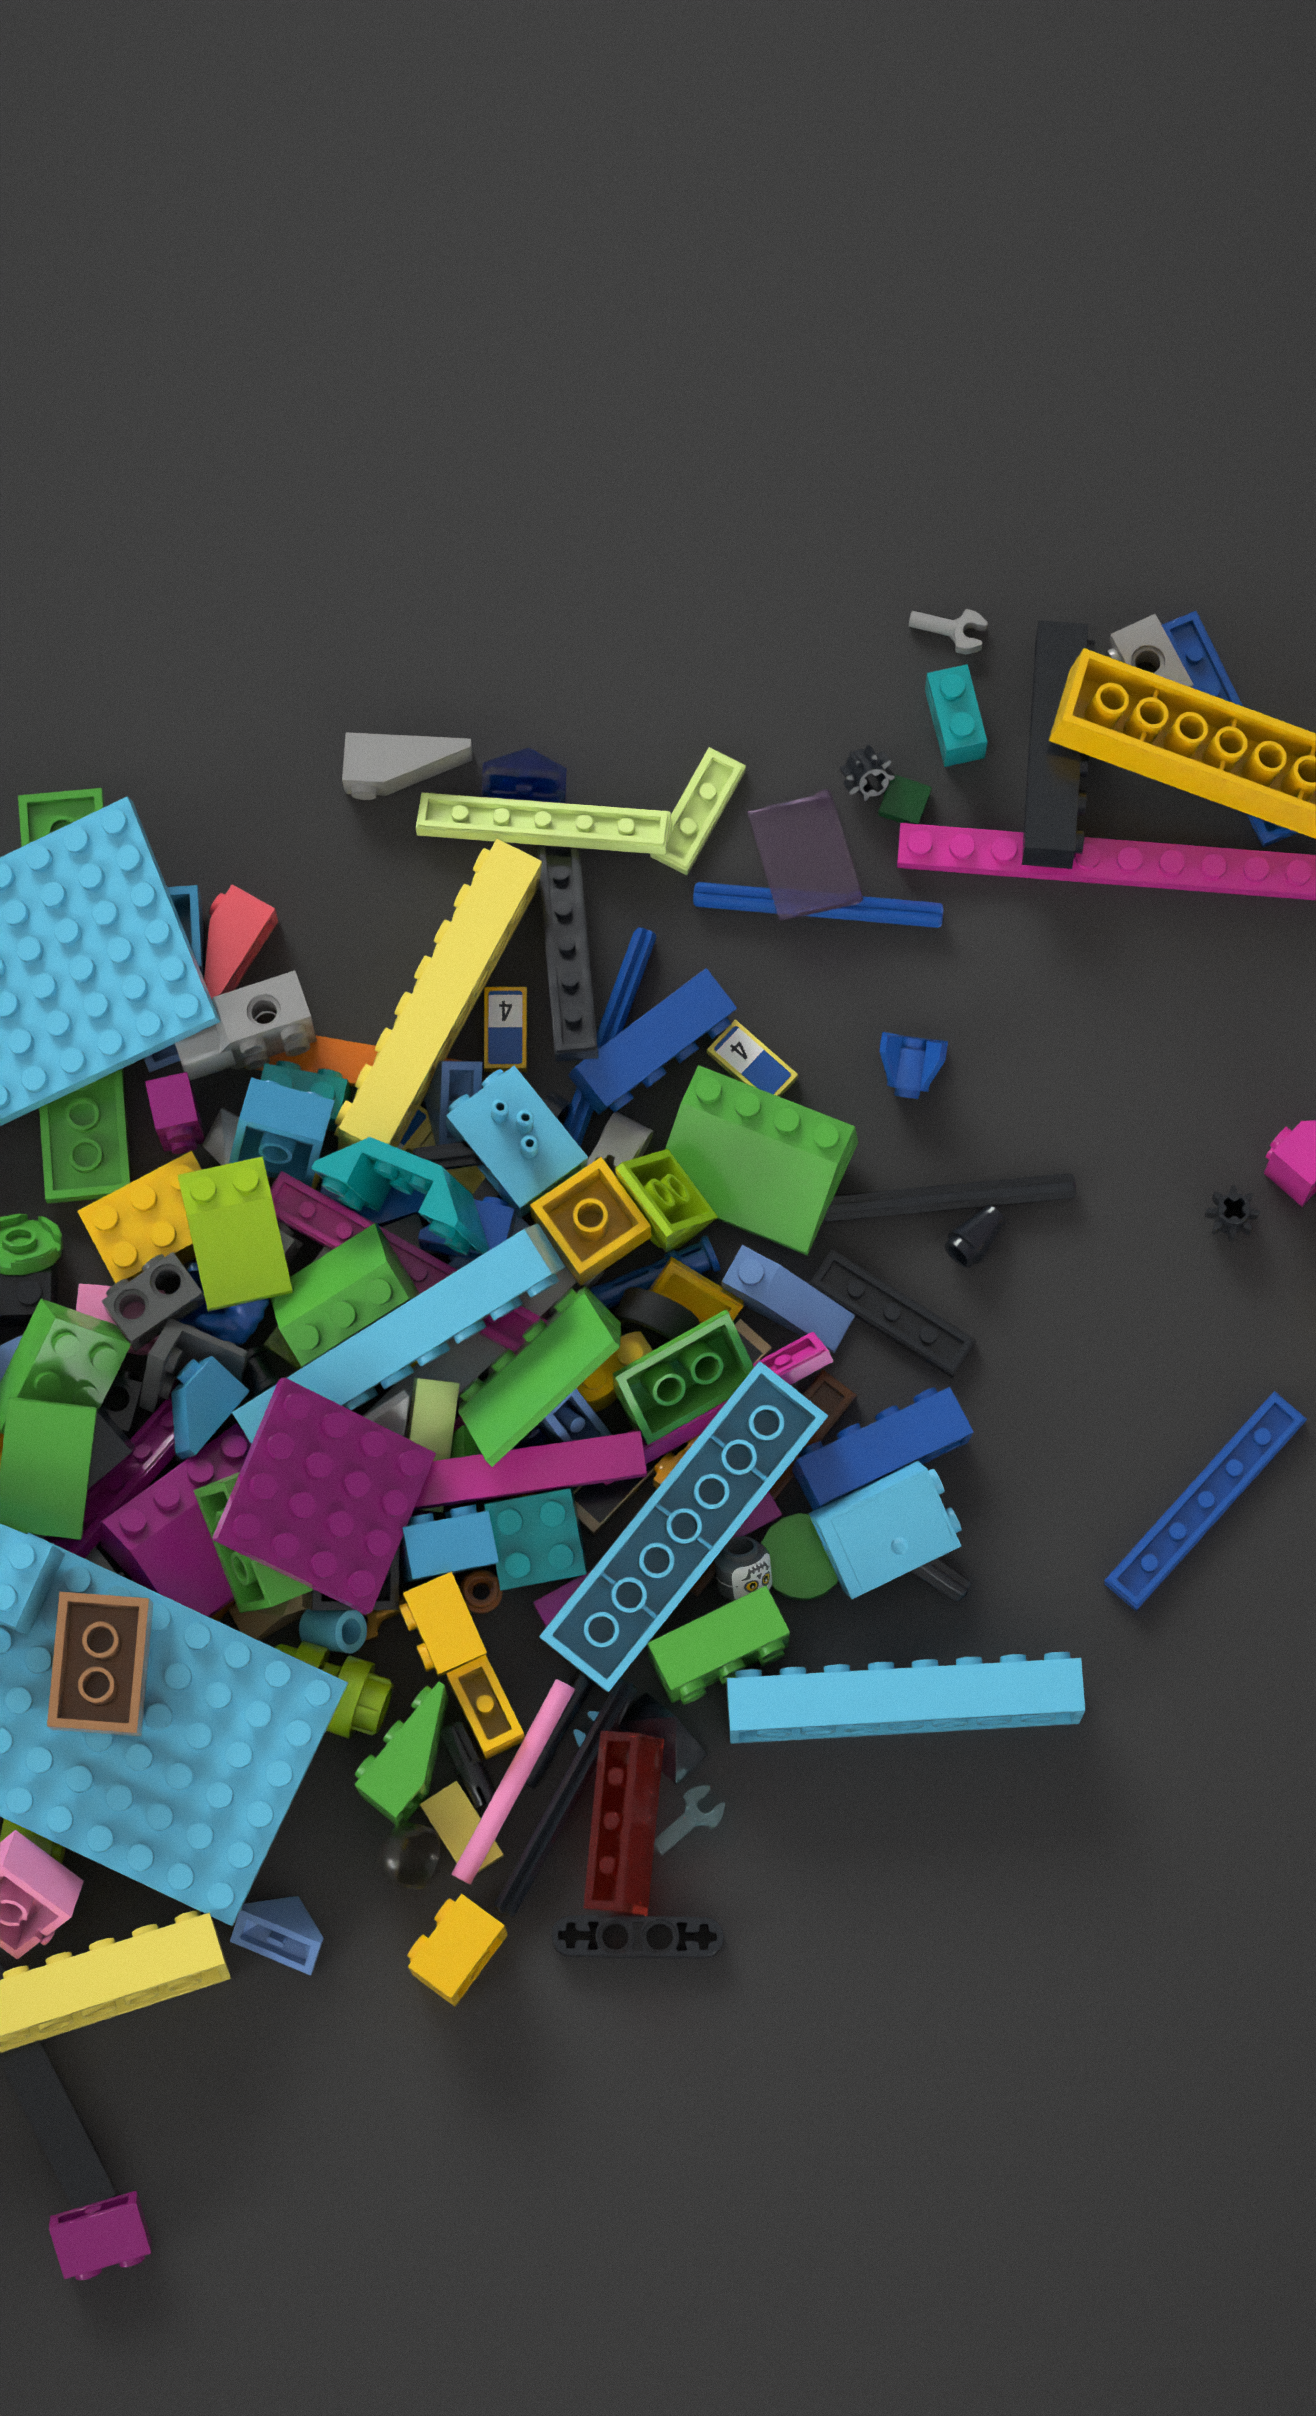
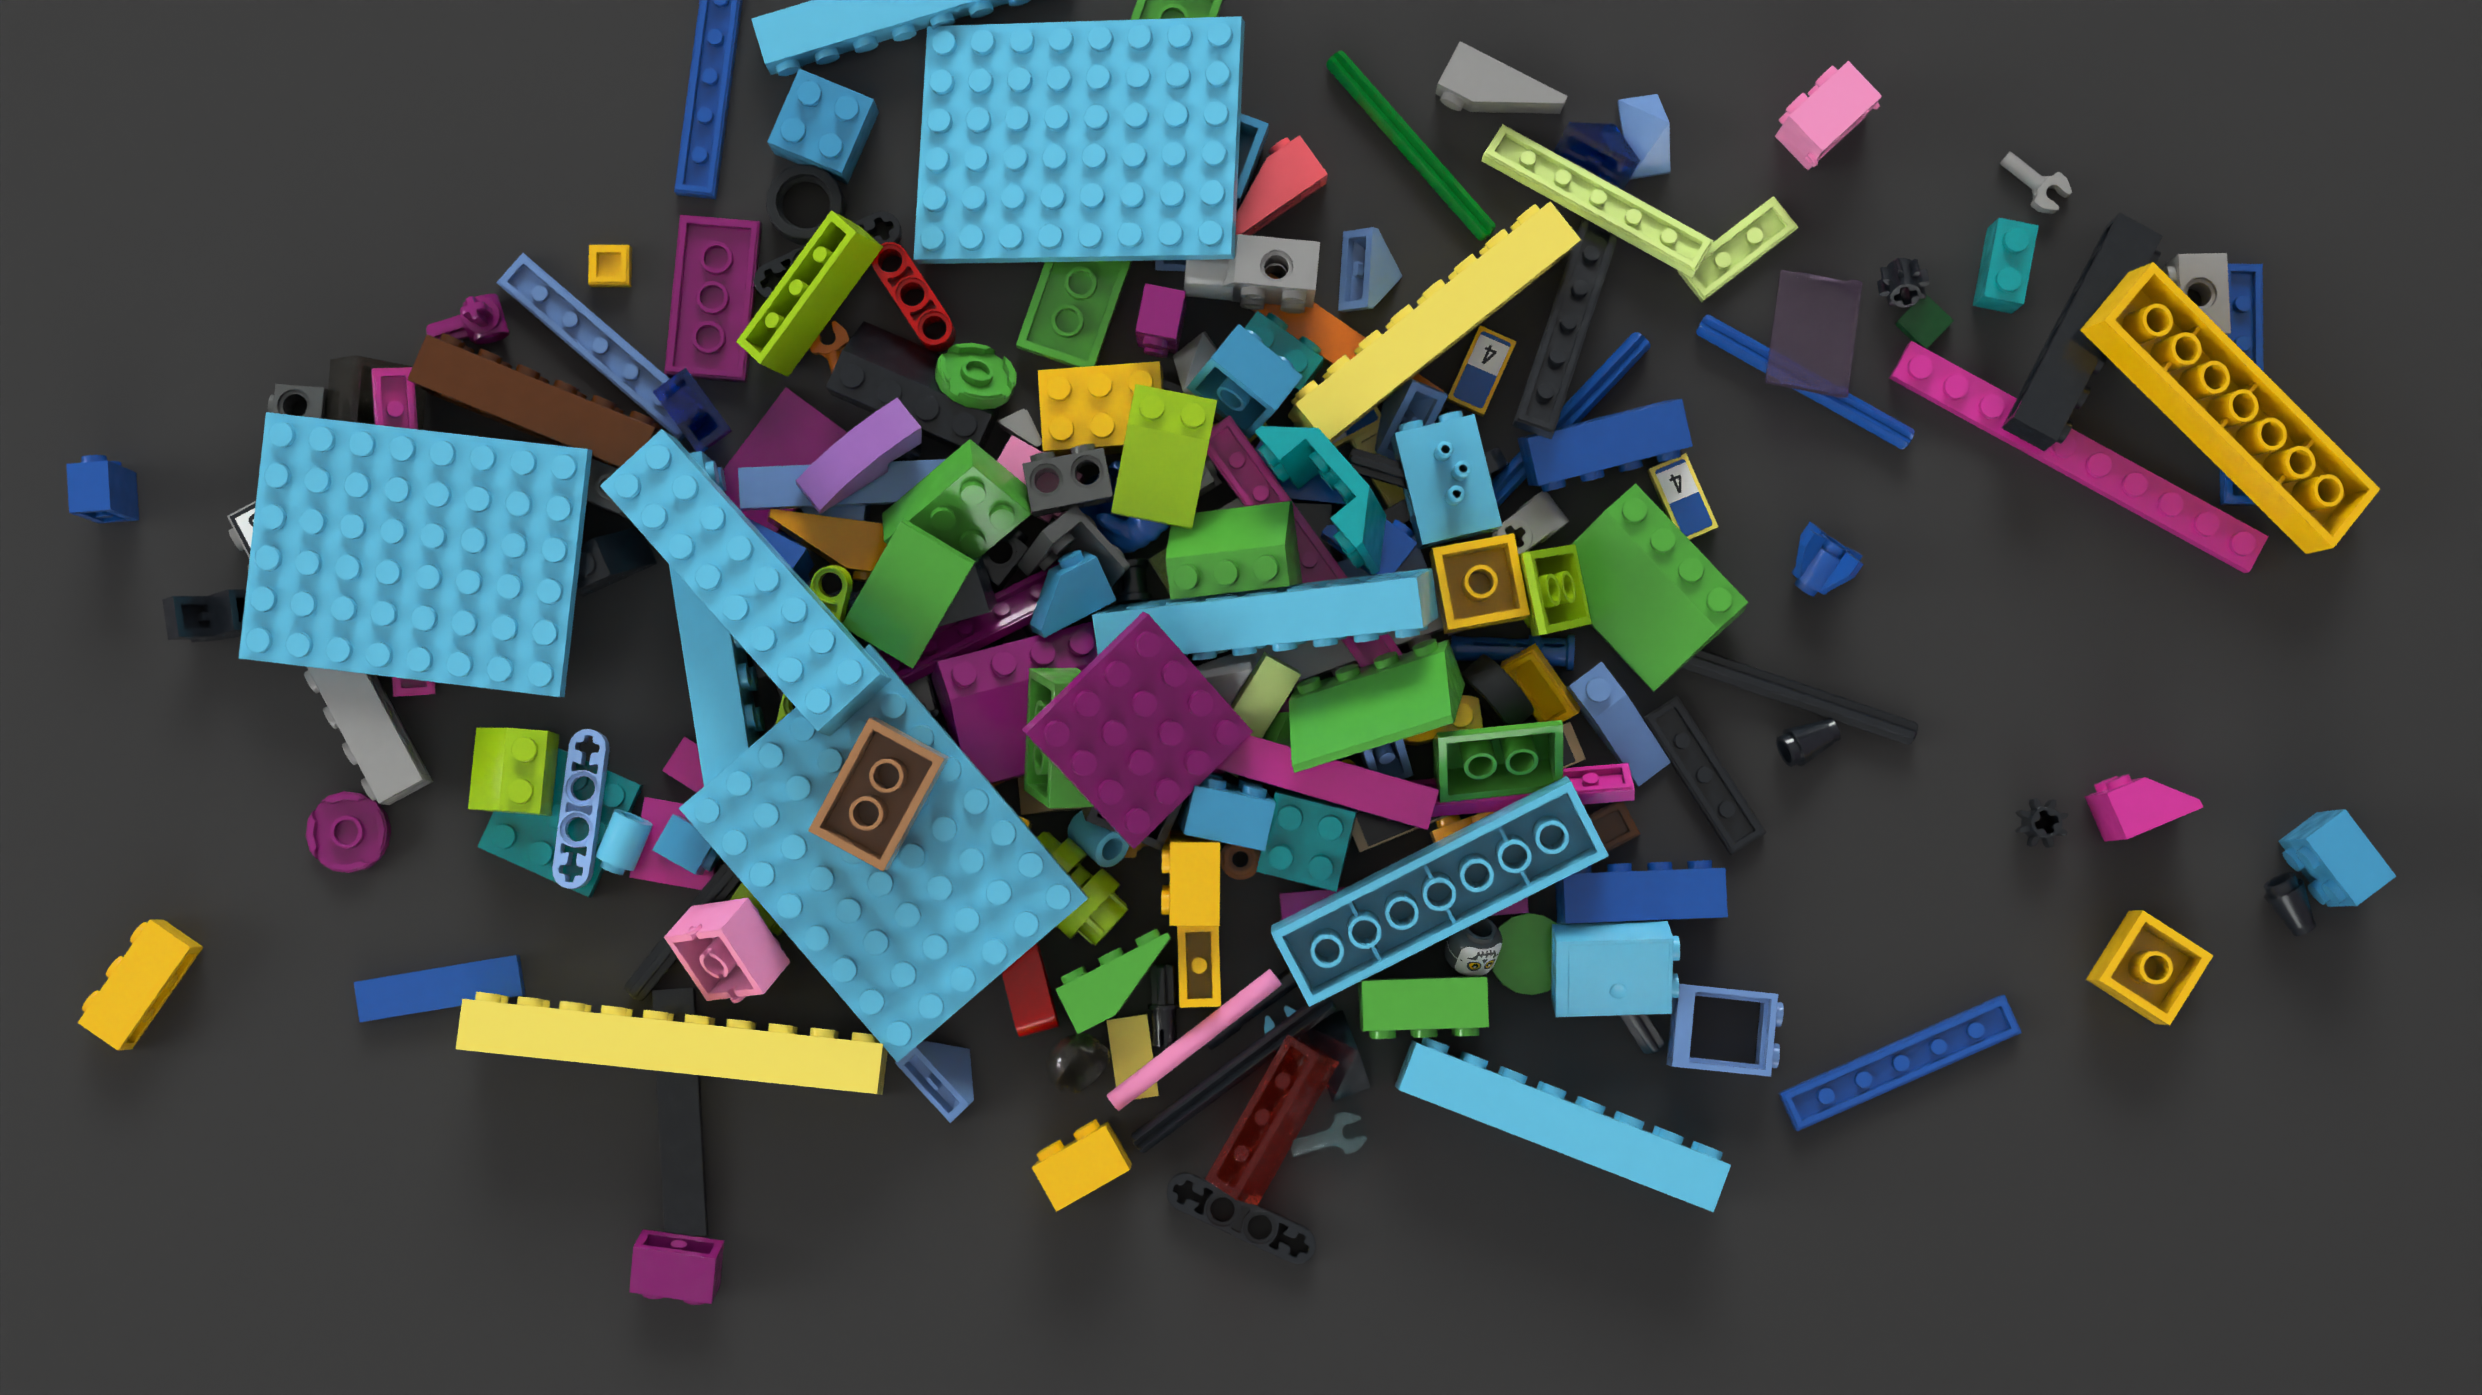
camera: 20 degrees right, 10 degrees up
(85, 1271) = (1022, 427): none -> light grey slope
(332, 1809) = (1030, 994): none -> red beam
(343, 850) = (1410, 145): none -> green axle
(352, 983) = (1366, 270): none -> medium blue slope
(564, 742) = (1647, 133): none -> medium blue slope
(723, 650) = (1828, 115): none -> bright pink brick
(978, 1556) = (1681, 1024): none -> medium blue window

